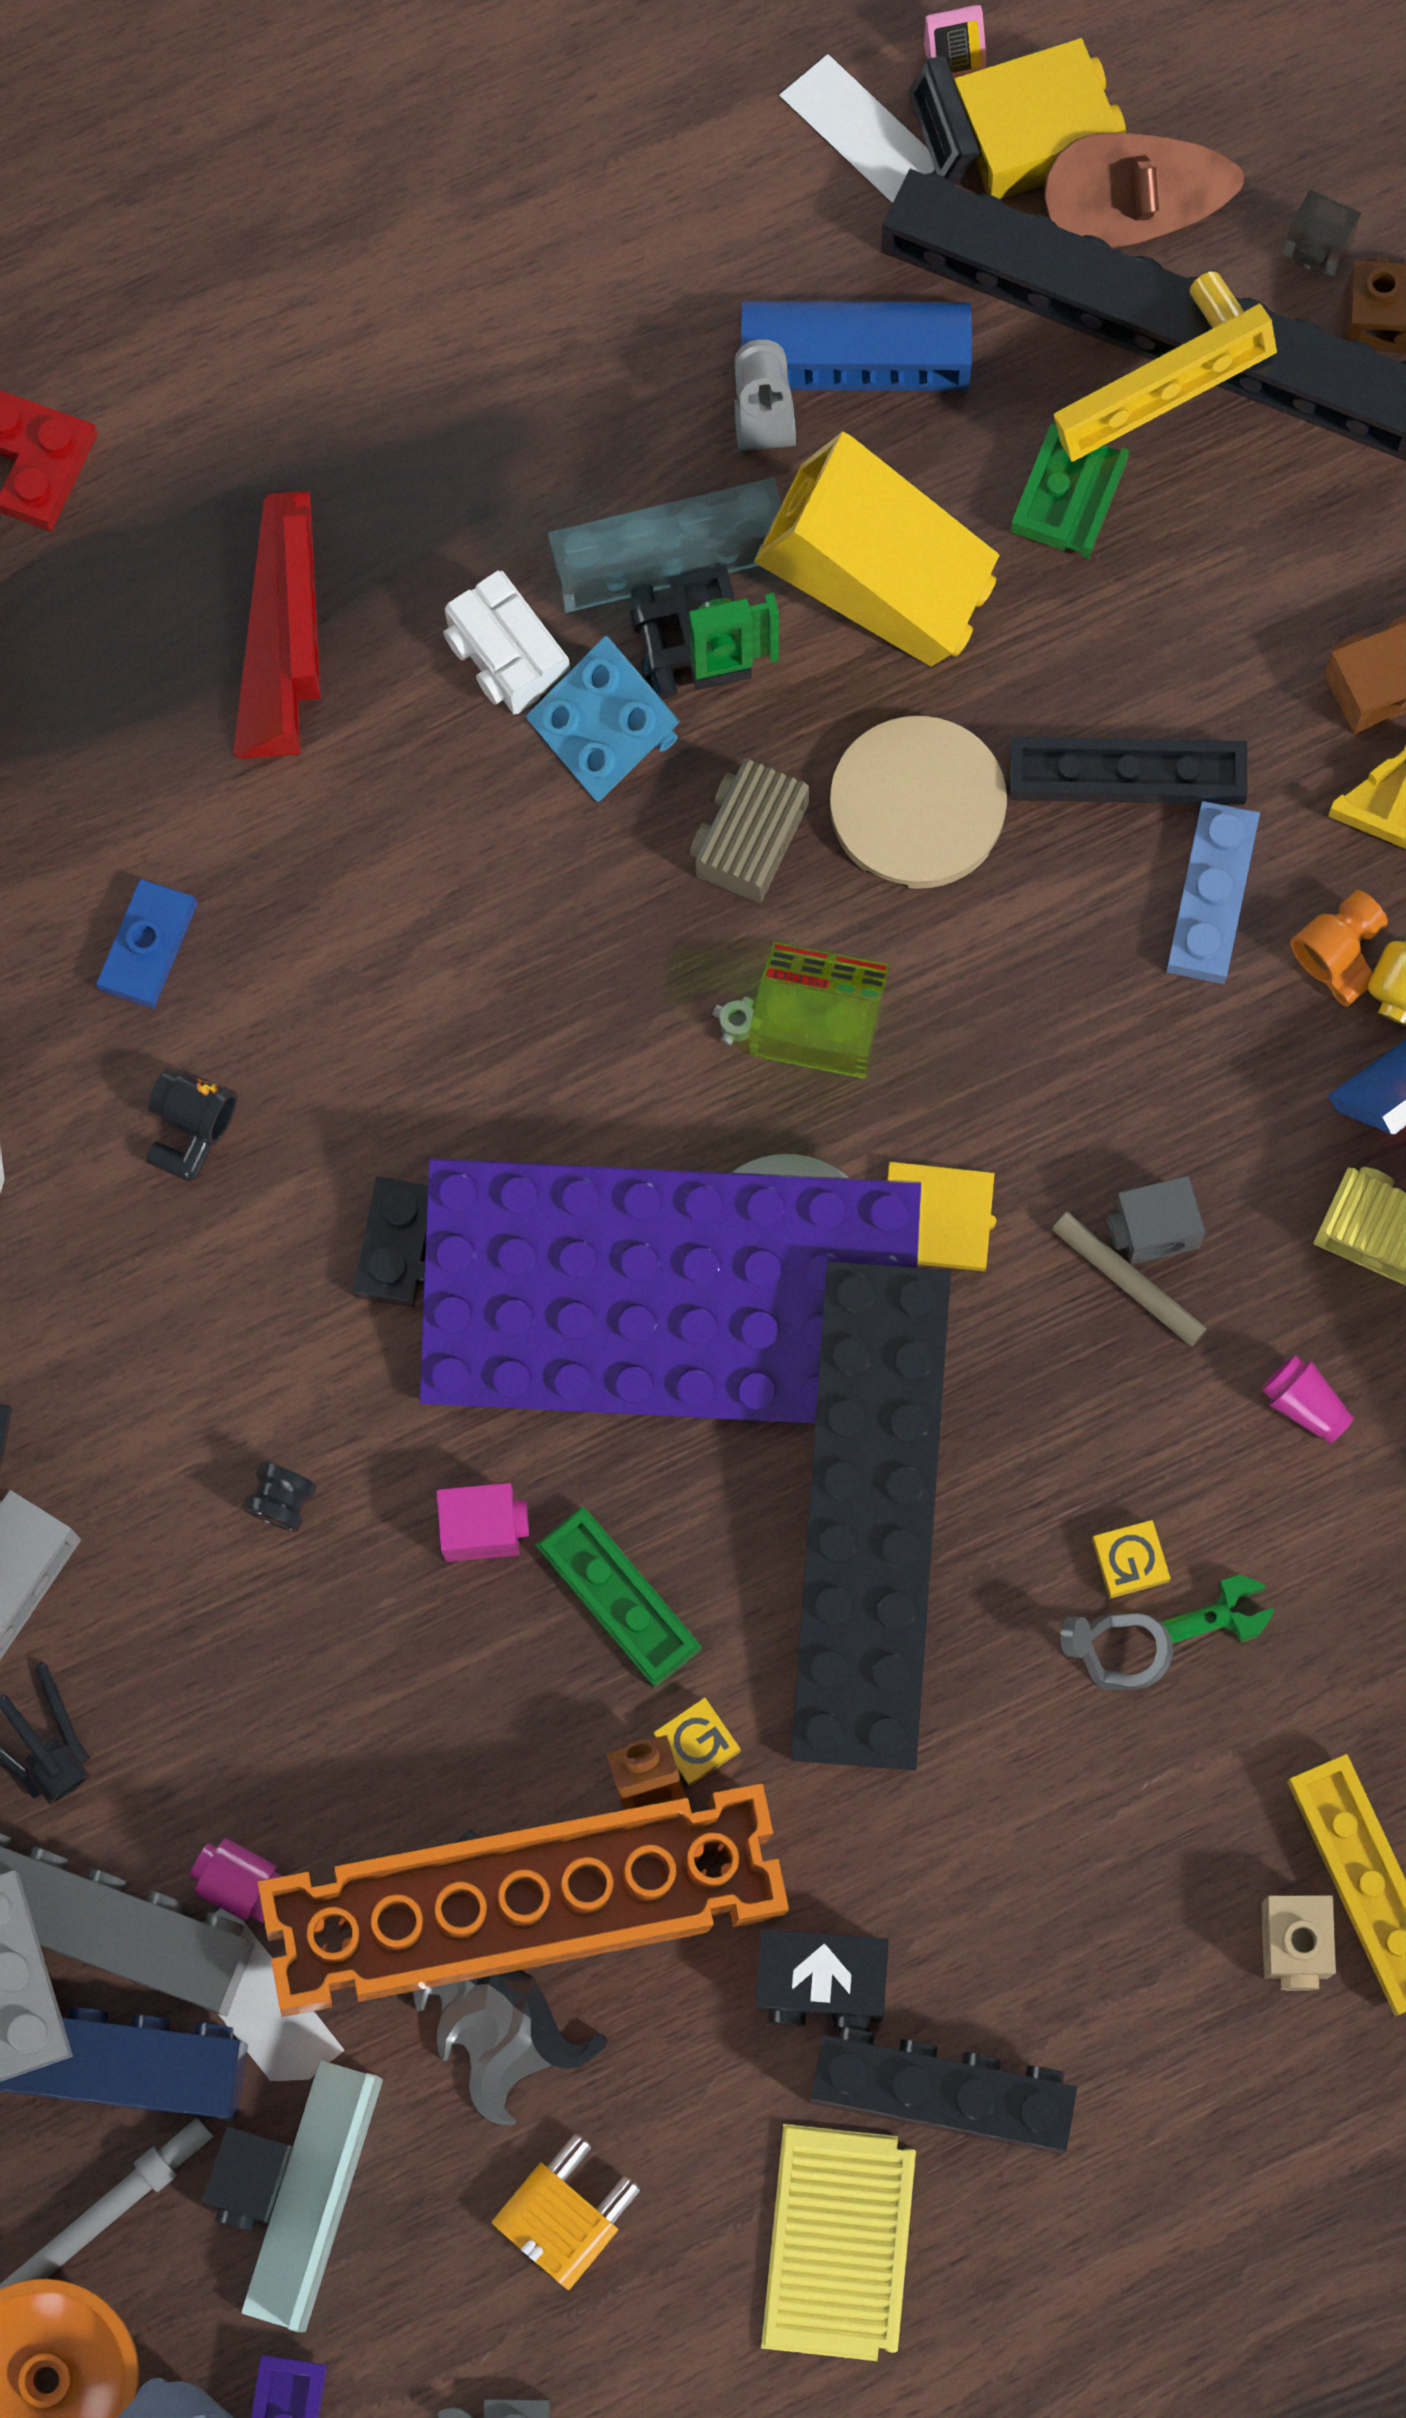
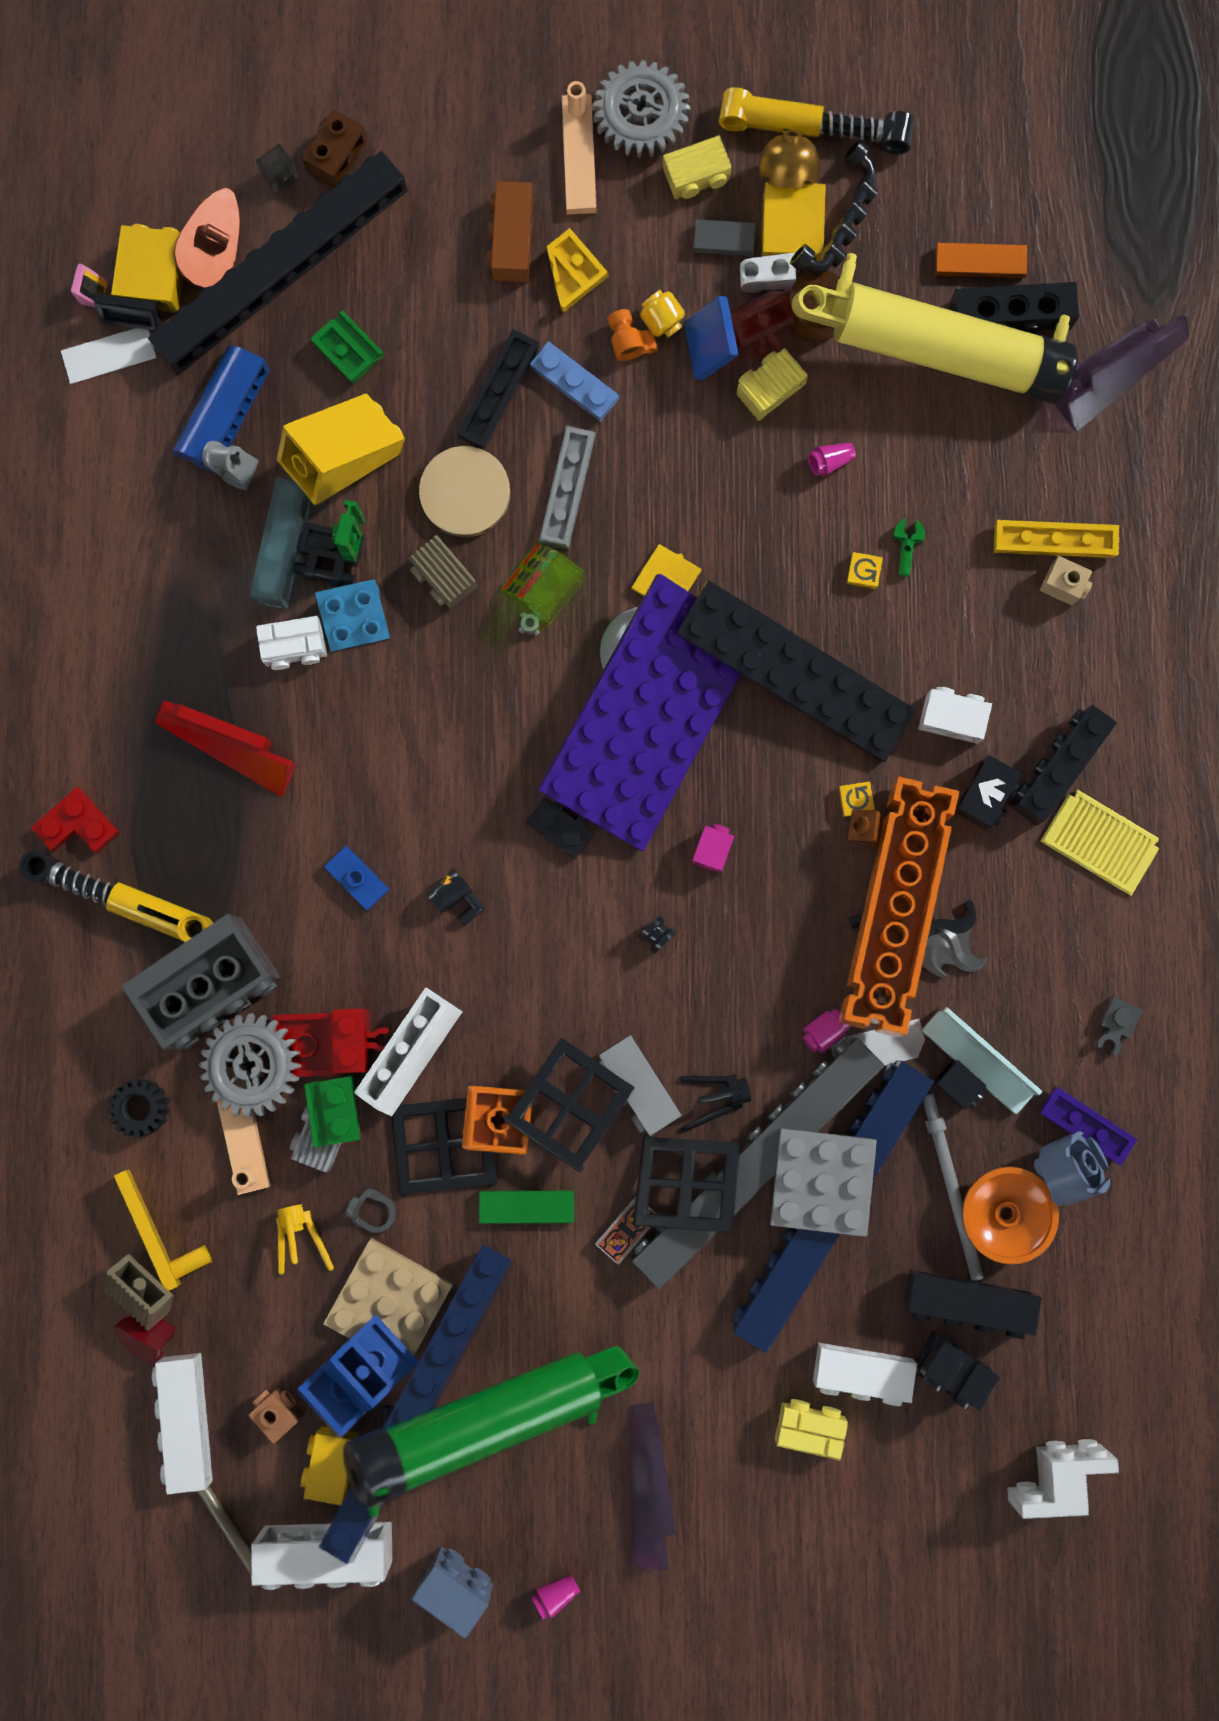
camera: 65 degrees left, 10 degrees up
(558, 2224) = (1039, 959): light orange piece -> none
(618, 1597) = (774, 803): green tile -> none
(939, 1848) = (955, 715): none -> white brick
(1015, 969) = (567, 487): none -> light grey tile
(1077, 1638) = (895, 610): dark grey piece -> none
(1129, 1279) = (737, 508): dark tan bar -> none
(1156, 1221) = (718, 482): dark grey brick -> none
(1229, 348) = (319, 231): yellow piece -> none

